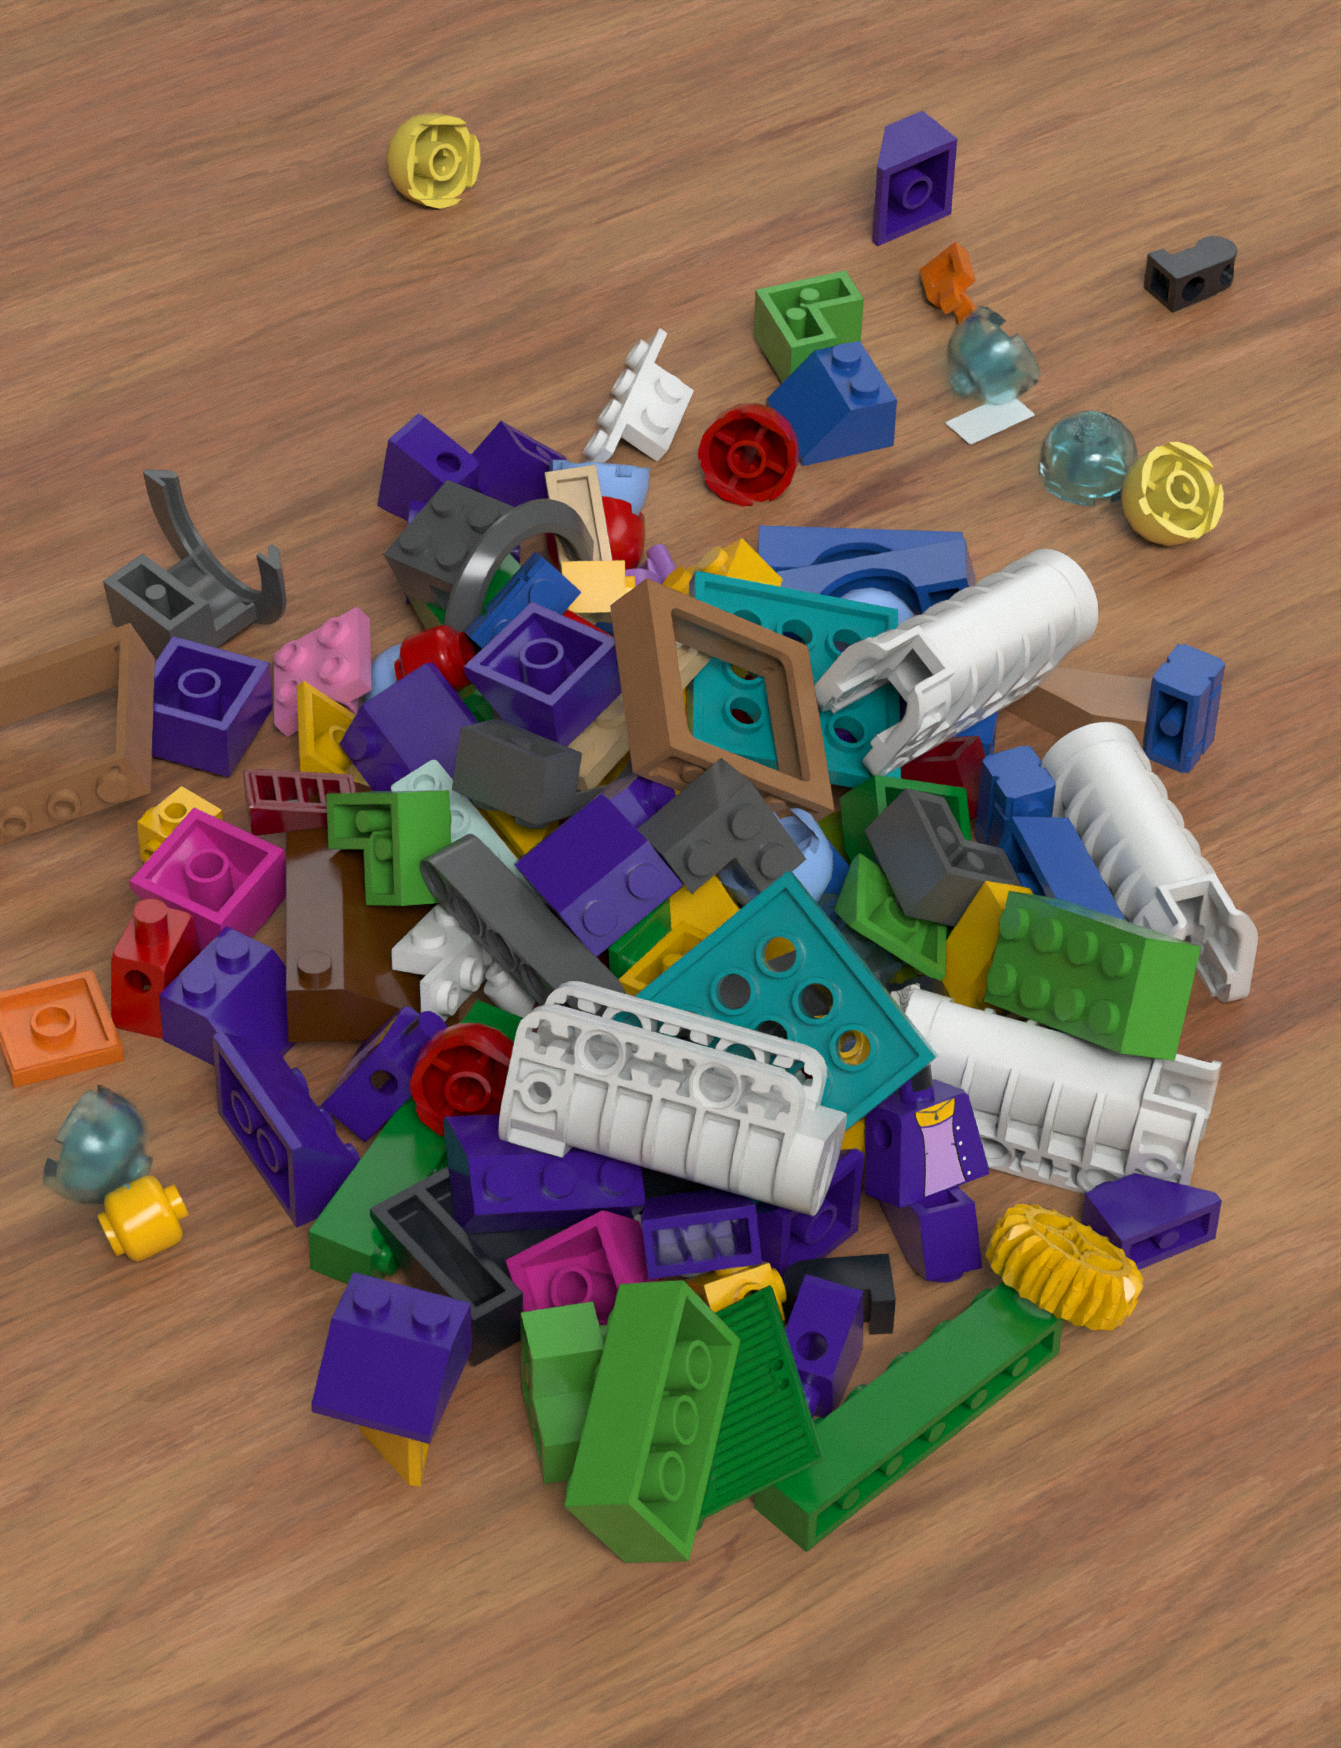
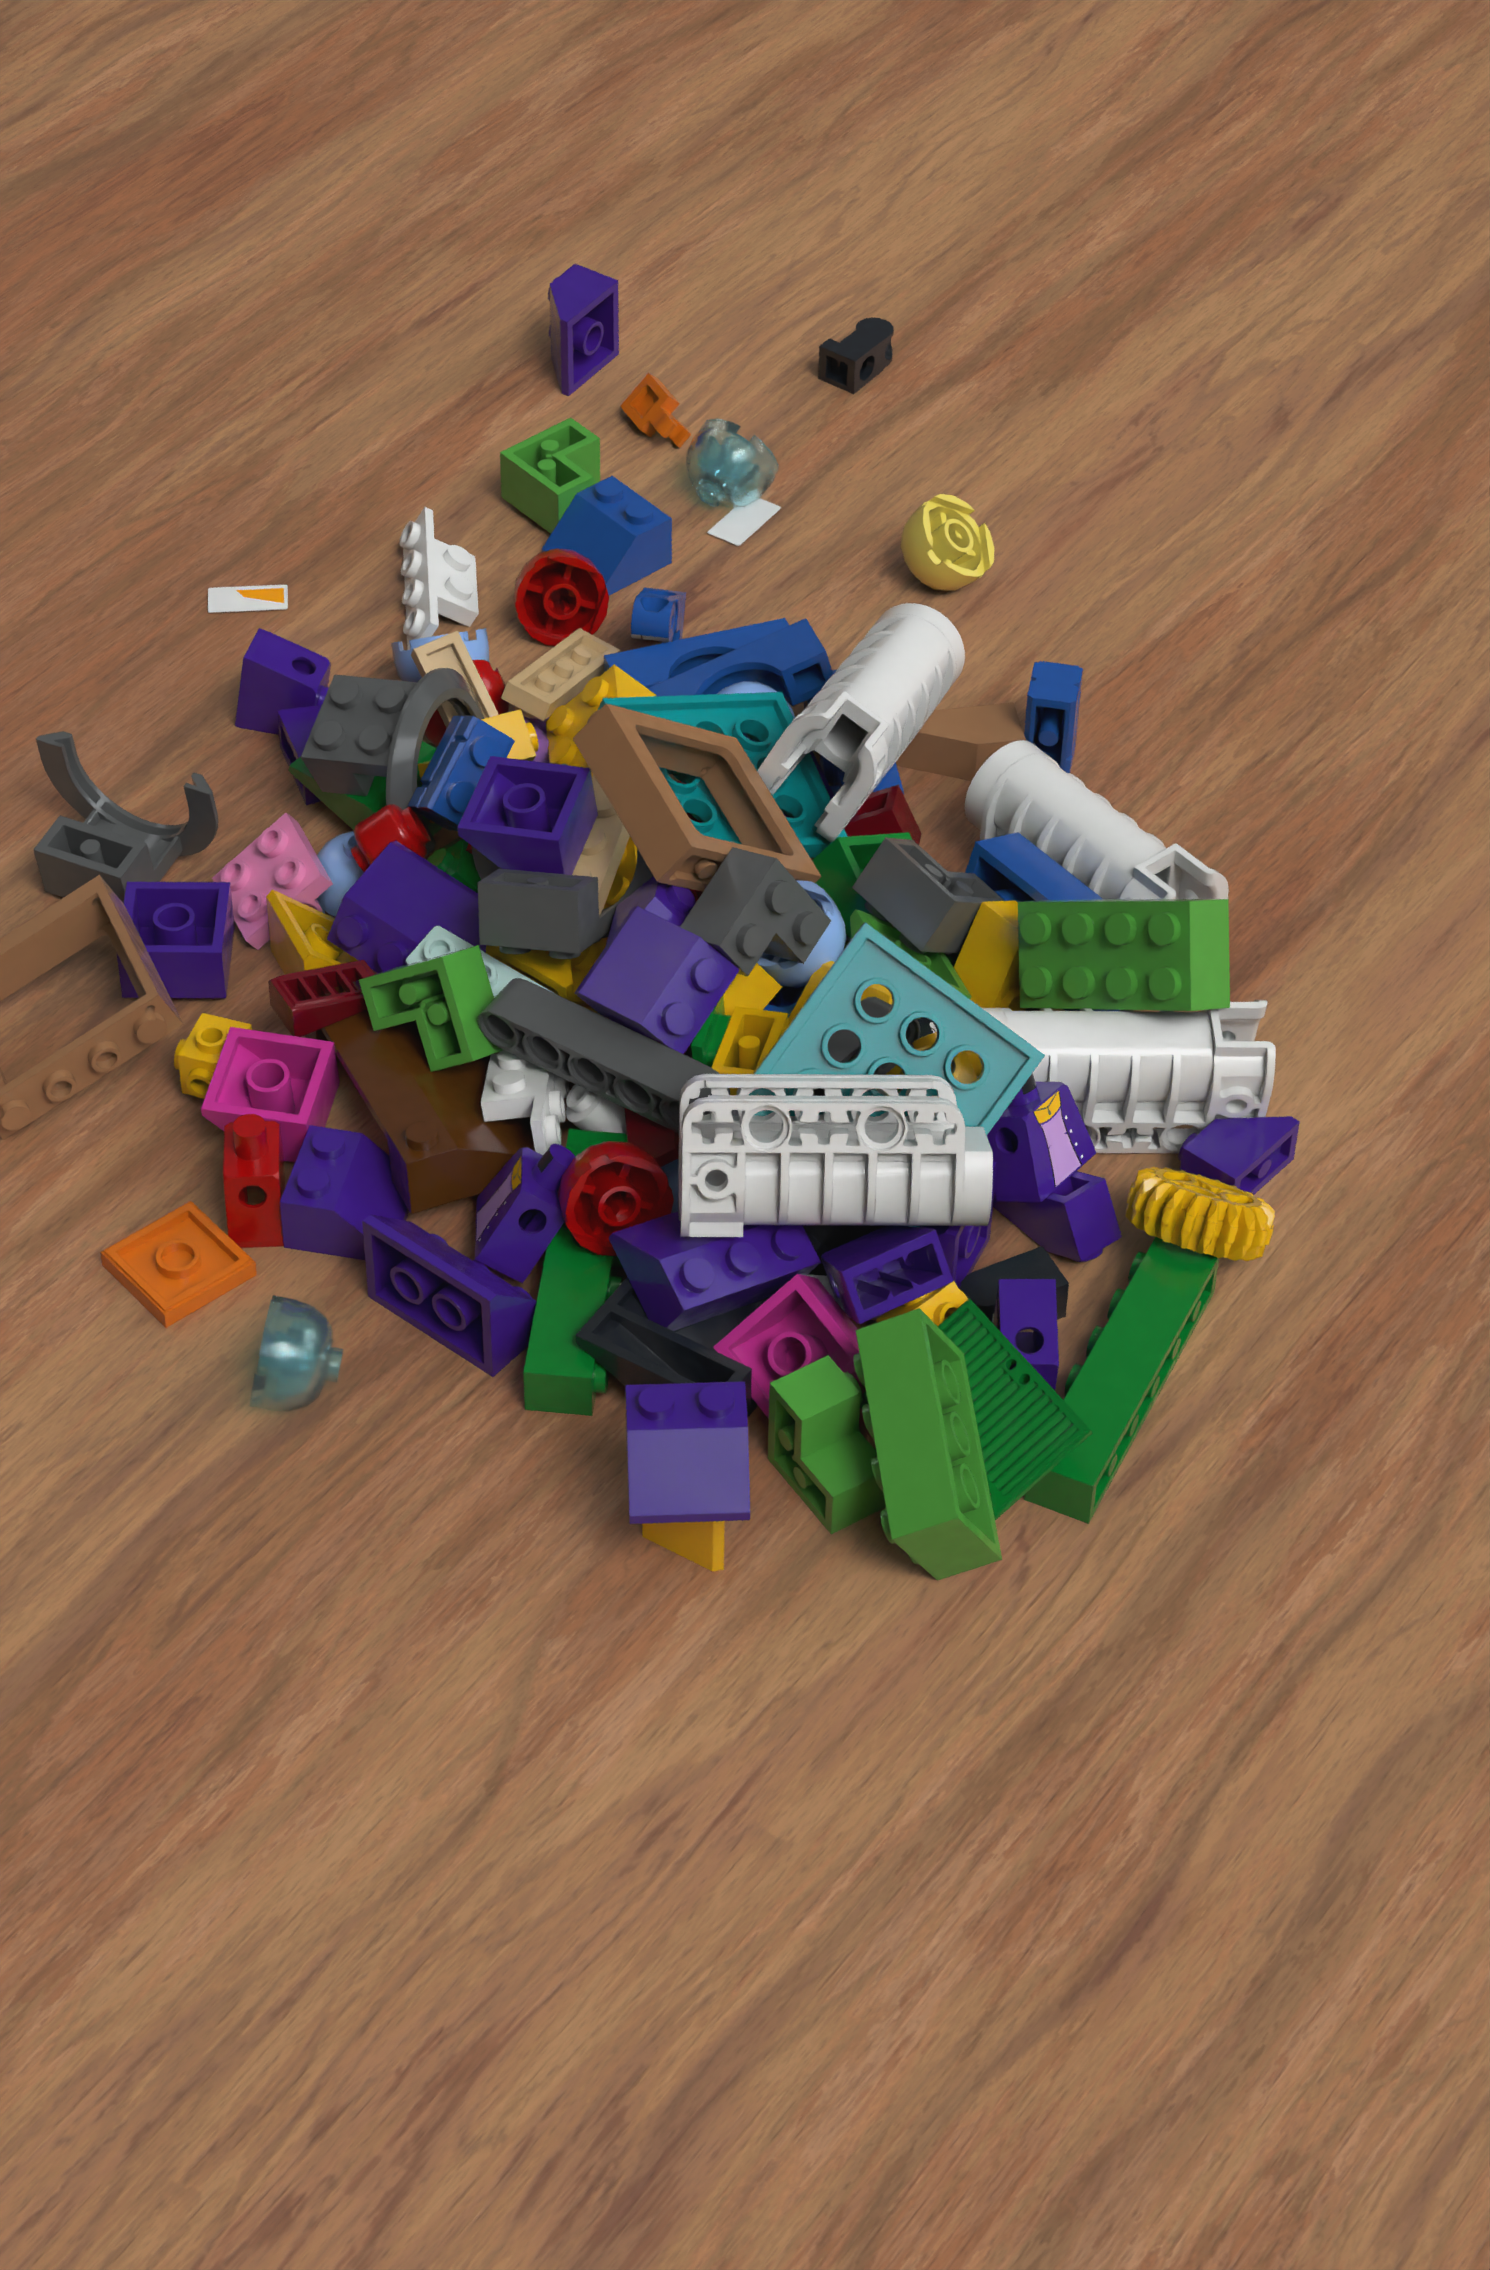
camera: 20 degrees left, 0 degrees up
(143, 1218) = (357, 1406): yellow head -> none
(433, 159) = (137, 407): light yellow cylinder -> none
(454, 379) = (247, 598): none -> white sticker
(513, 466) = (356, 653): dark purple slope -> none
(690, 535) = (557, 675): none -> tan plate
(836, 497) = (658, 615): none -> blue leg
(1008, 787) = (952, 824): blue brick -> none
(1087, 457) = (852, 531): clear light blue cylinder -> none

